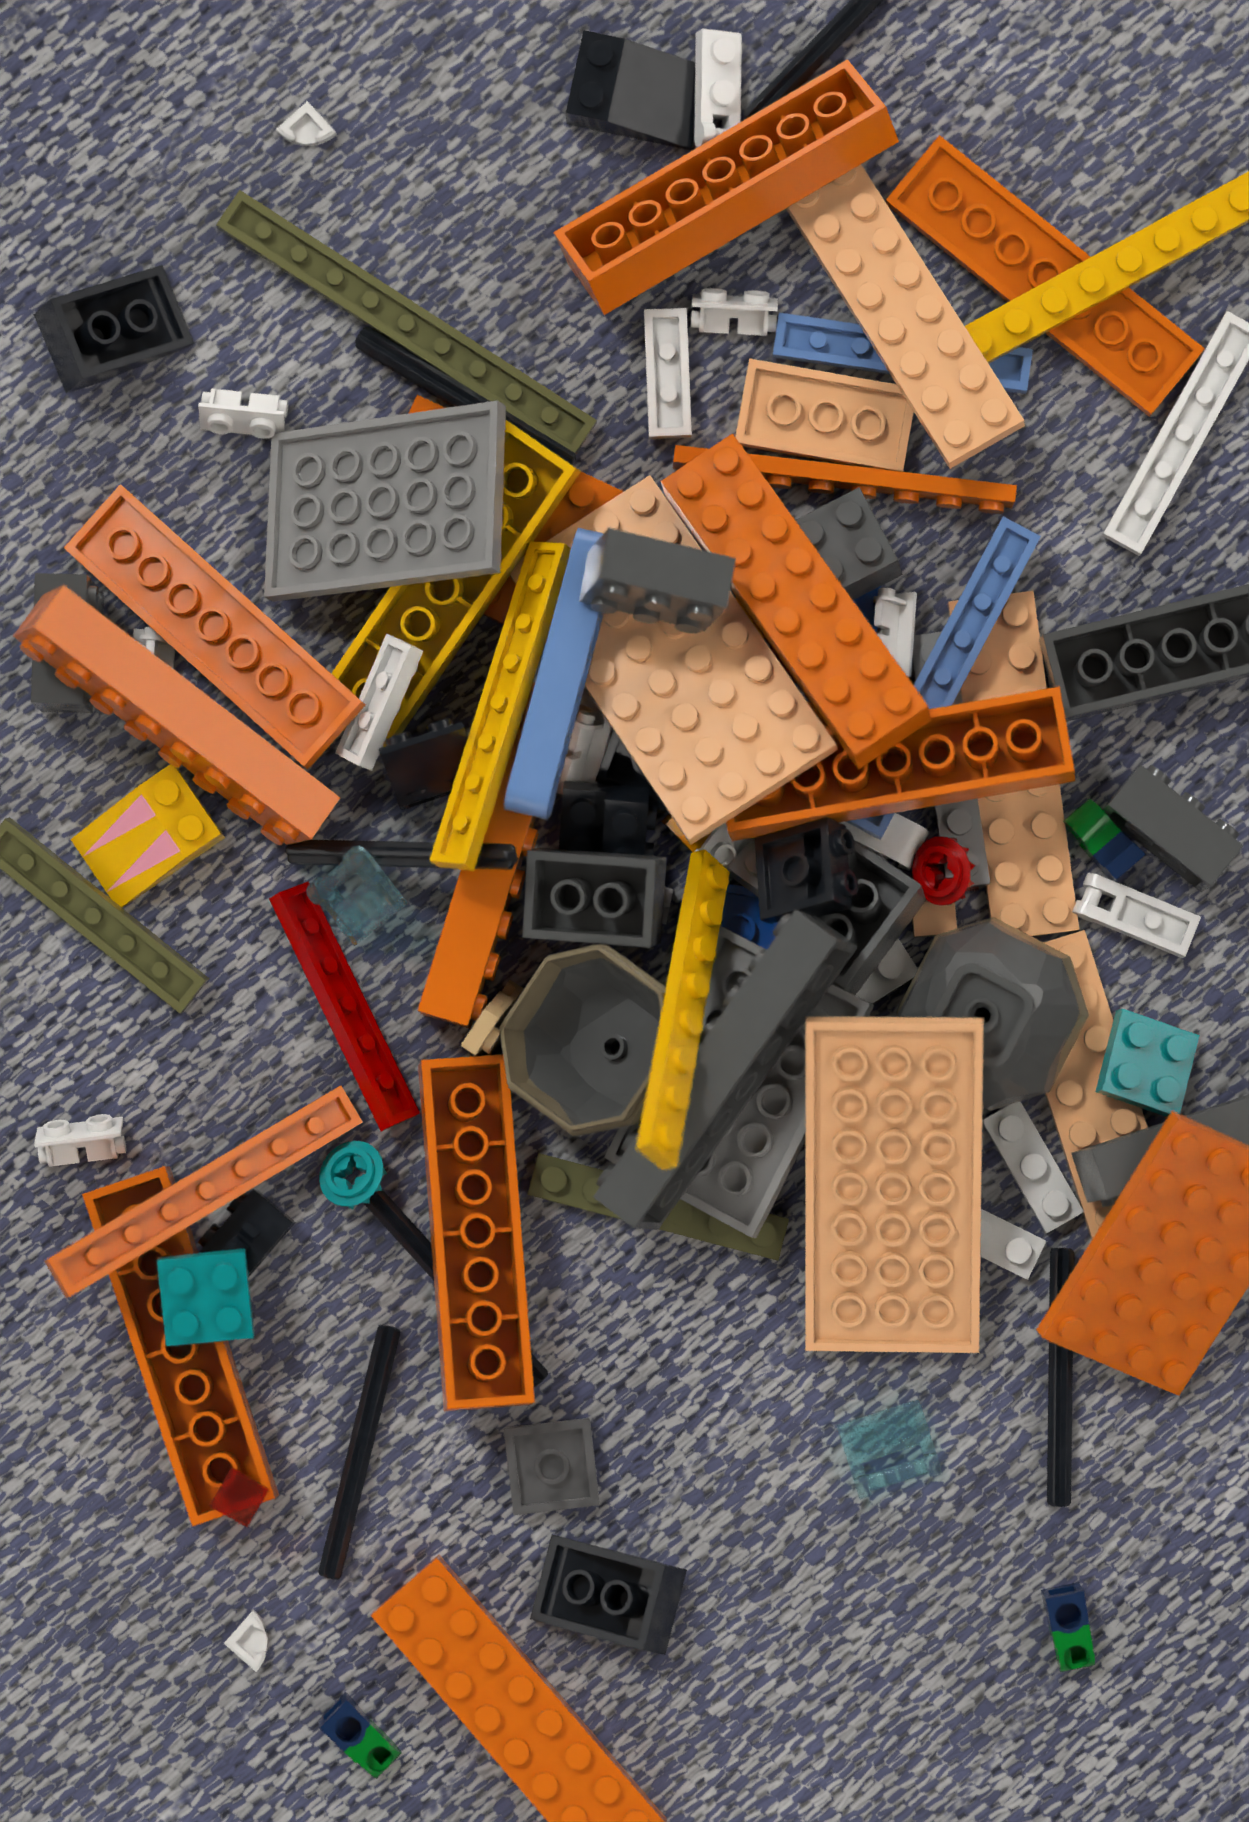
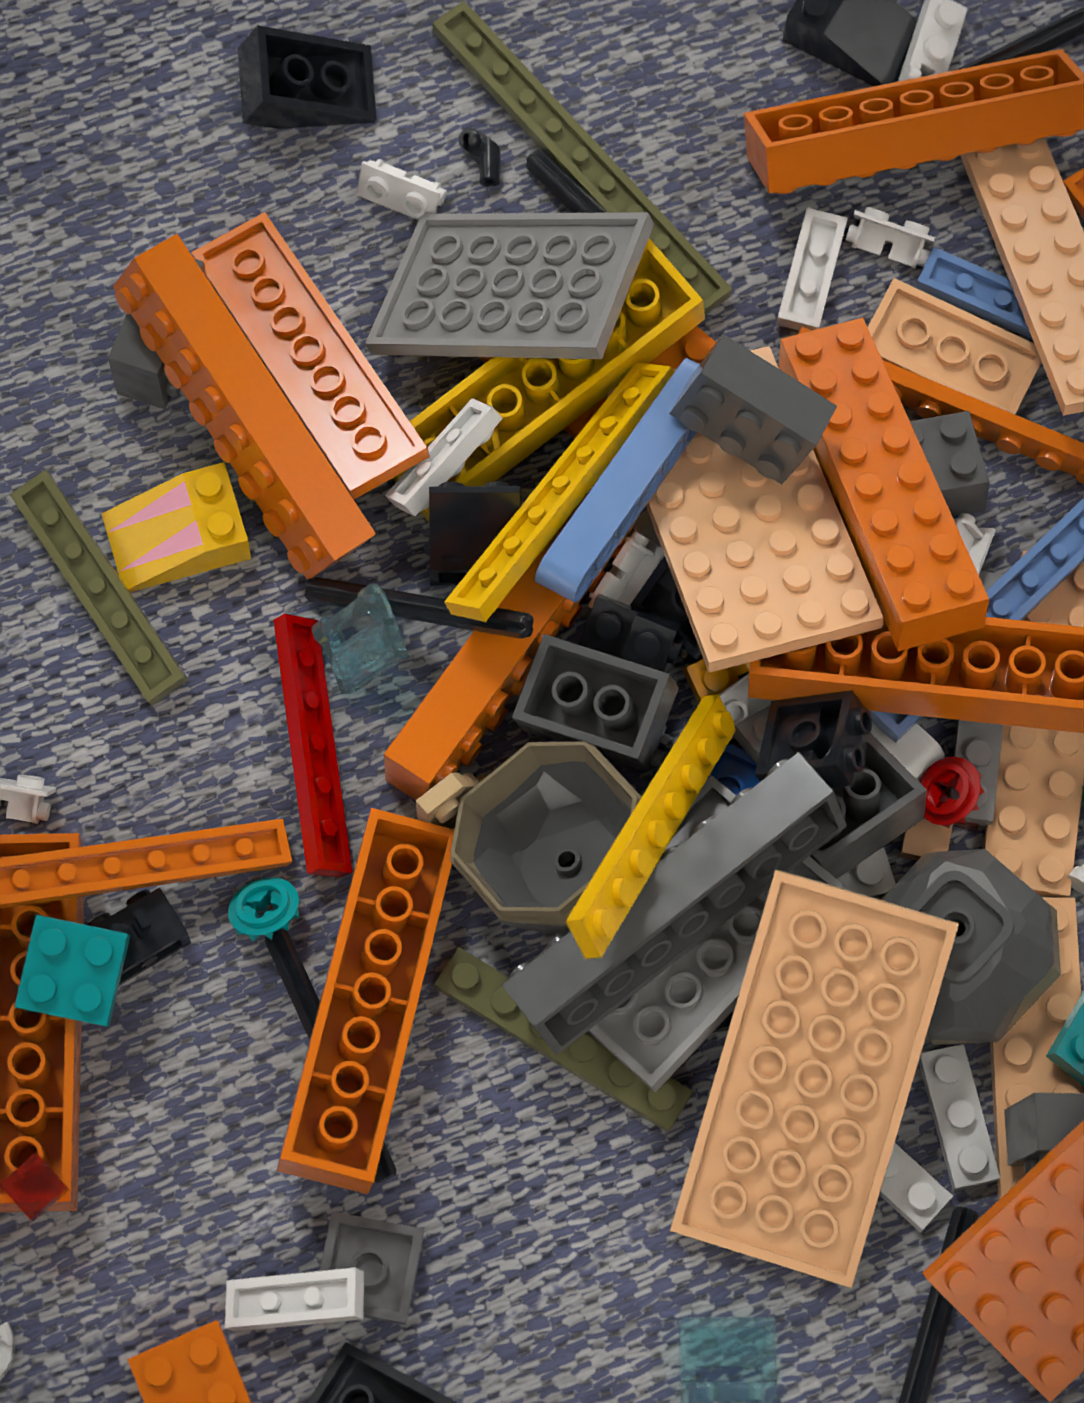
camera: 10 degrees right, 15 degrees down
(311, 346) = (484, 152): none -> black arm
(359, 1452) = (174, 1193): black axle -> none
(497, 1517) = (294, 1299): none -> white plate

